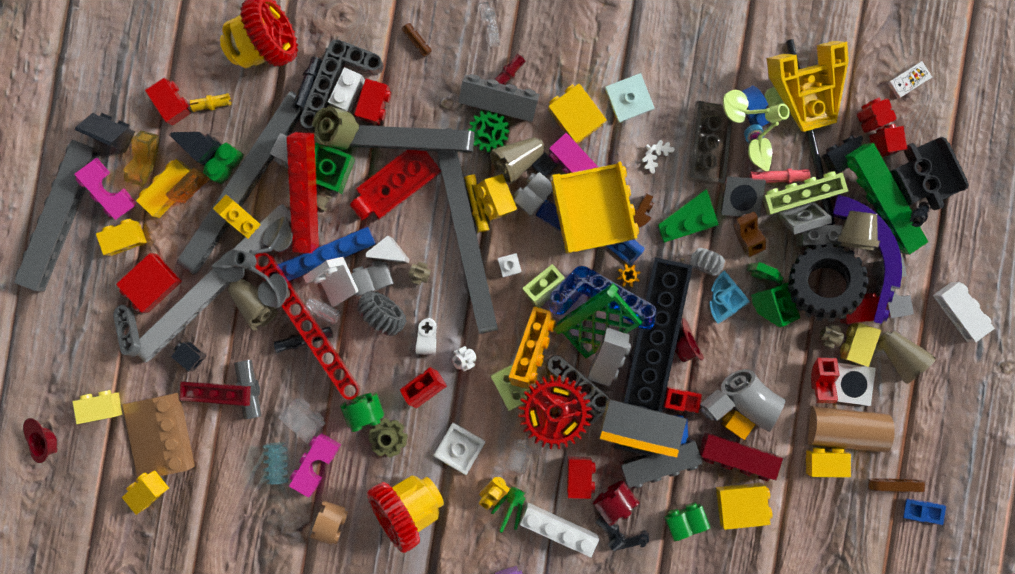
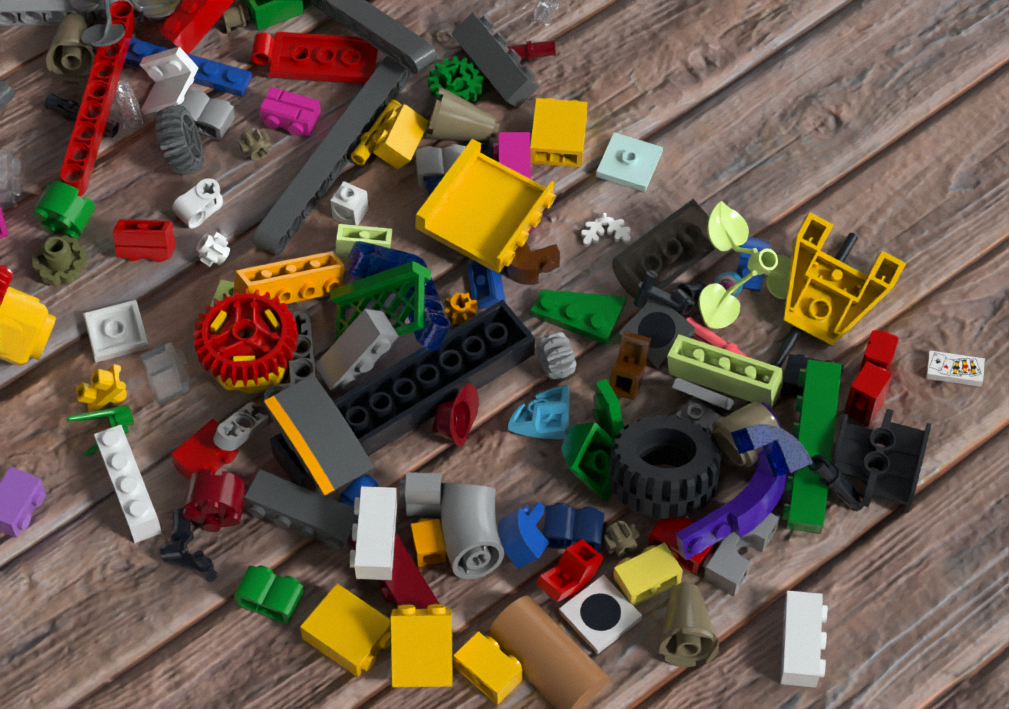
camera: 35 degrees right, 30 degrees down
(387, 250) = (245, 94): white slope -> none
(417, 234) = (290, 112): none -> dark pink brick
(585, 458) = (238, 433): none -> light grey beam
(682, 400) = (387, 457): red brick -> none
(721, 454) = (374, 533): none -> white brick
(743, 170) = (679, 299): none -> black pin
(781, 381) = (520, 536): none -> blue brick
(794, 487) = (421, 646): none -> yellow brick
(801, 351) = (569, 525): none -> dark blue brick
(890, 234) = (780, 447): none -> clear blue brick

